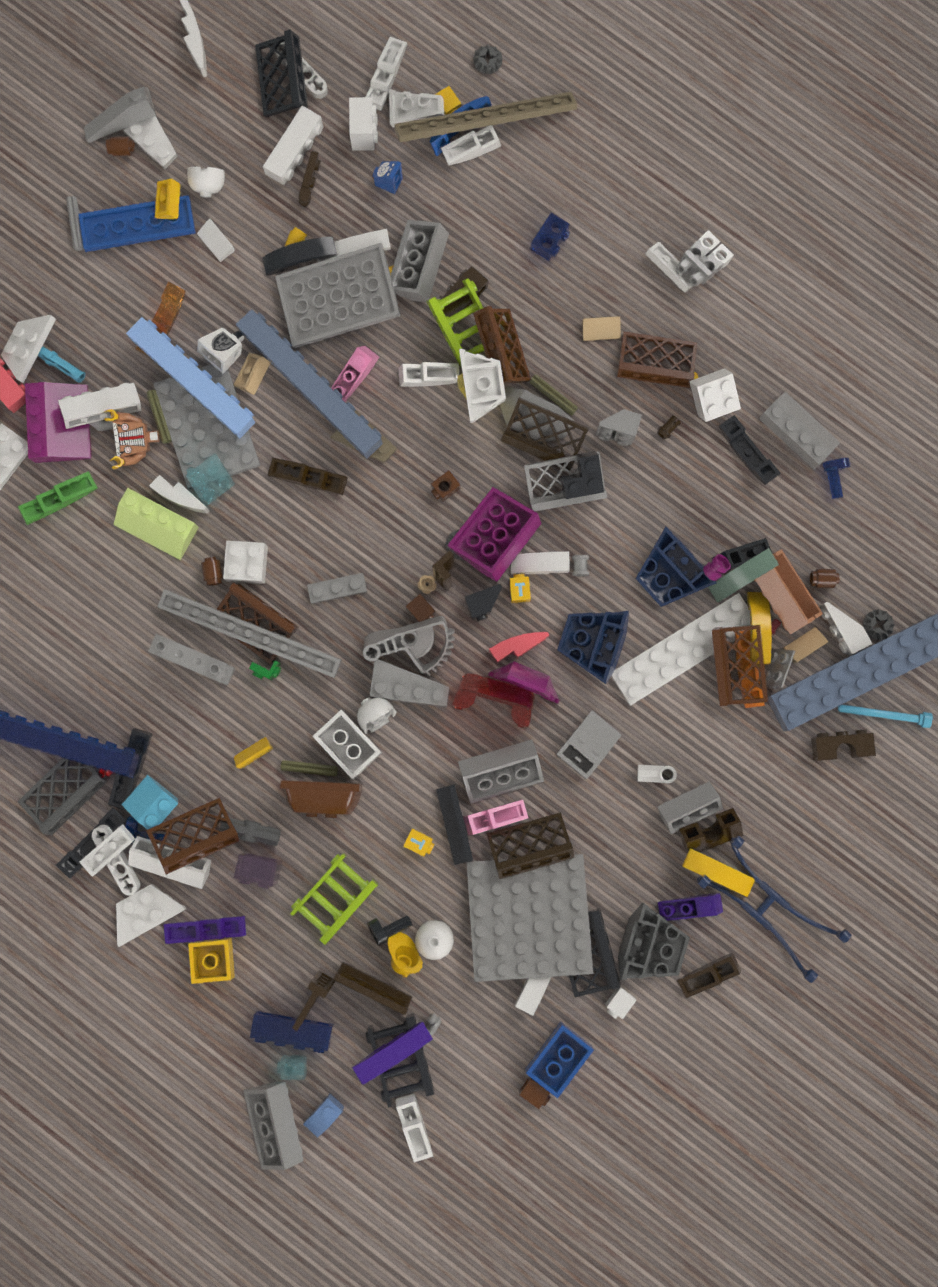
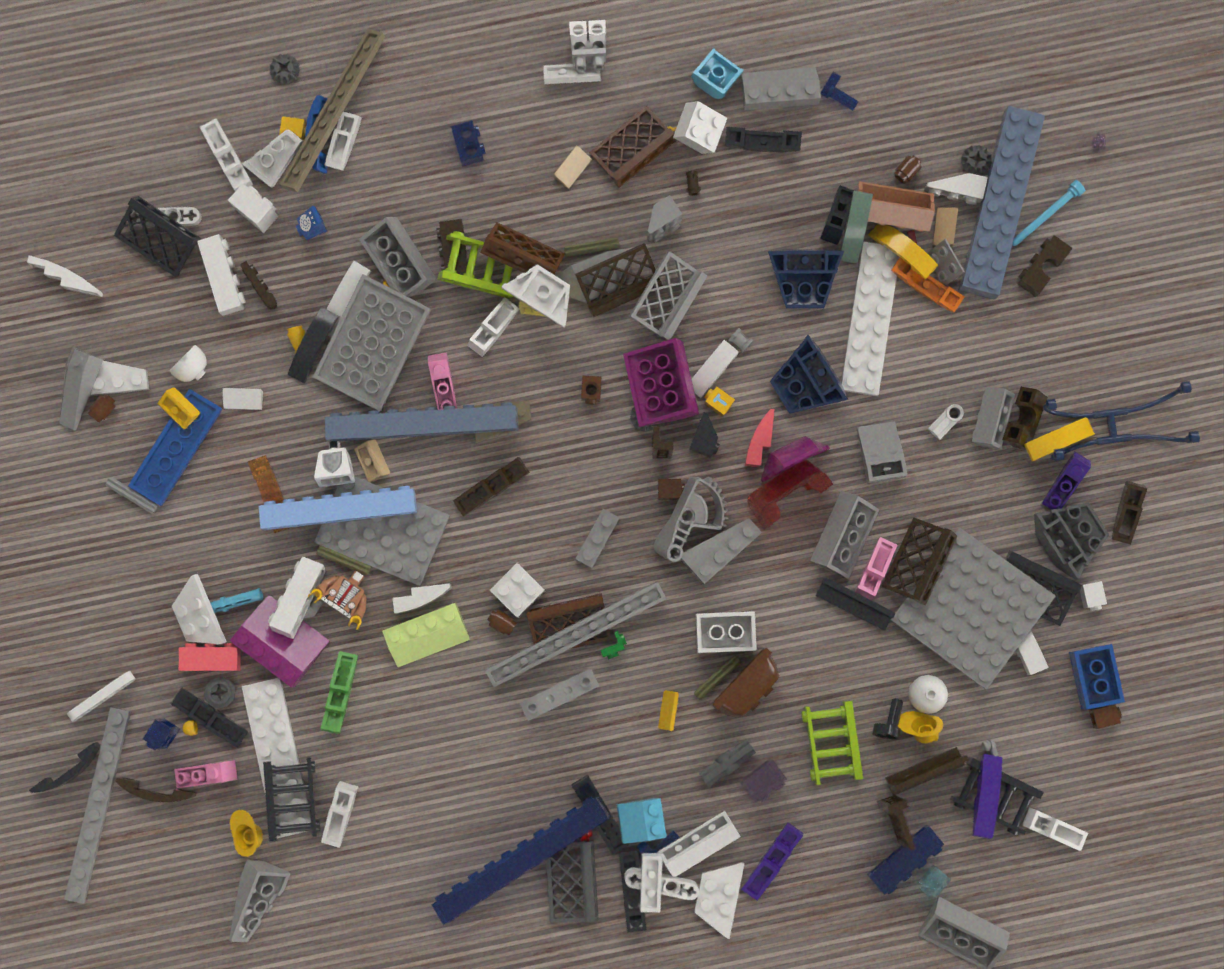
camera: 45 degrees left, 0 degrees up
(195, 851) = (711, 811): reddish brown fence -> none
(209, 479) = (430, 562): clear light blue hinge -> none
(211, 960) = (801, 875): yellow brick -> none
(324, 1115) = (989, 889): medium blue slope -> none
(374, 714) = (719, 591): white cylinder -> none
(419, 842) = (845, 642): yellow brick -> none
(427, 579) = (653, 462): tan plate -> none
(588, 479) = (683, 279): black brick -> none
(714, 569) = (832, 241): magenta wheel -> none
(723, 668) = (910, 301): reddish brown fence -> none
(766, 373) = (716, 75): none -> medium azure slope

